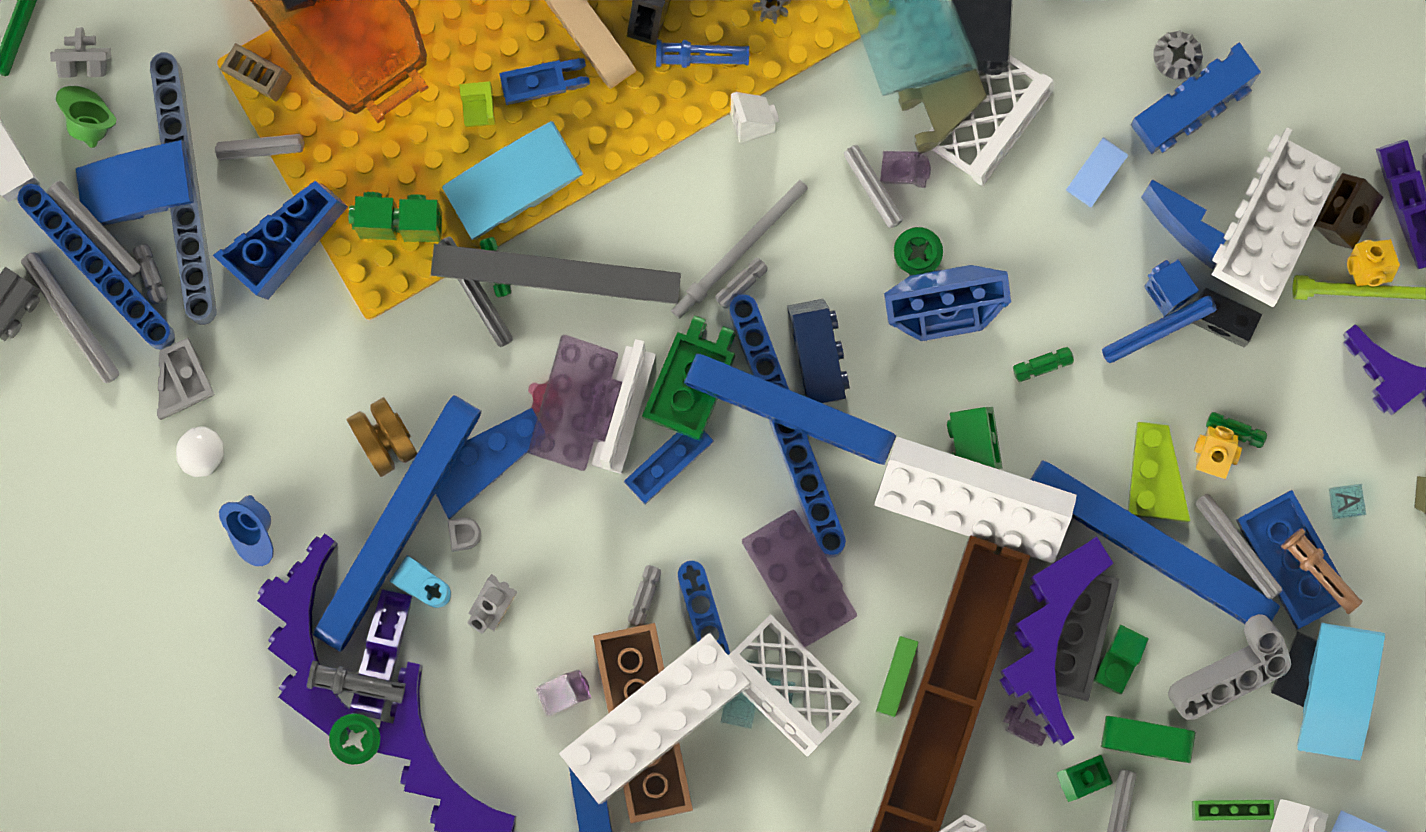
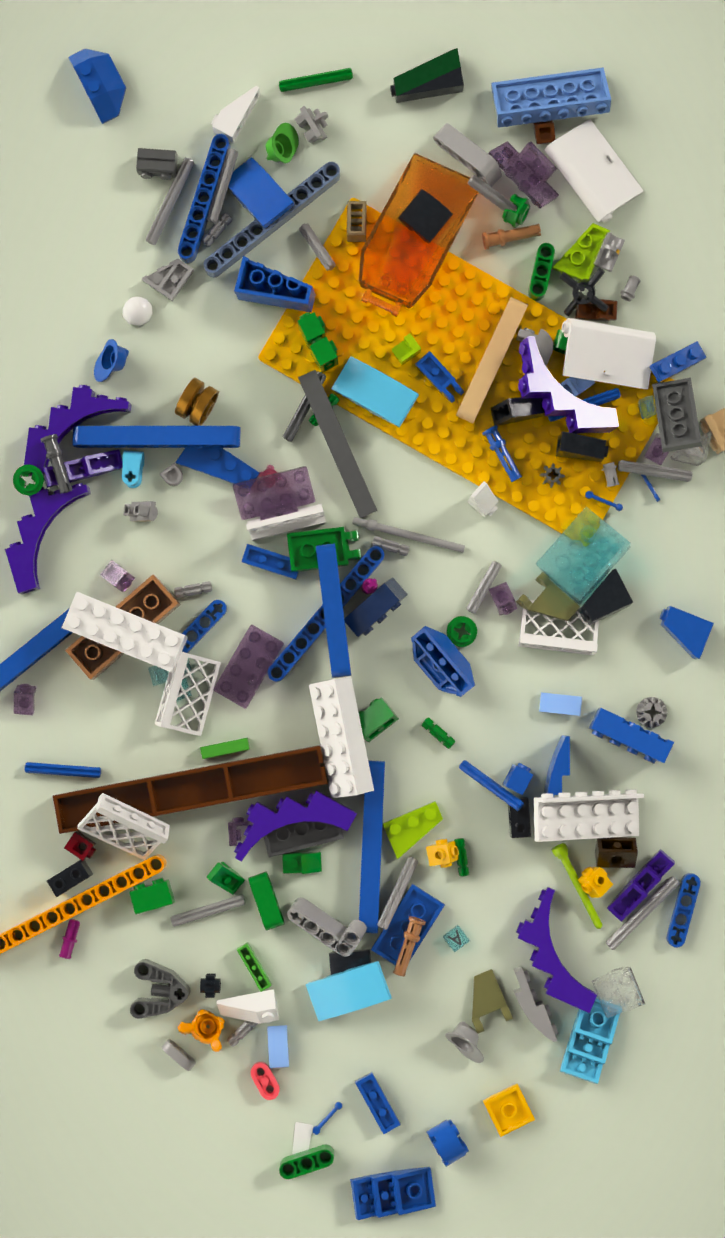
camera: 65 degrees right, 5 degrees up
(783, 341) = (369, 586): none -> magenta axle

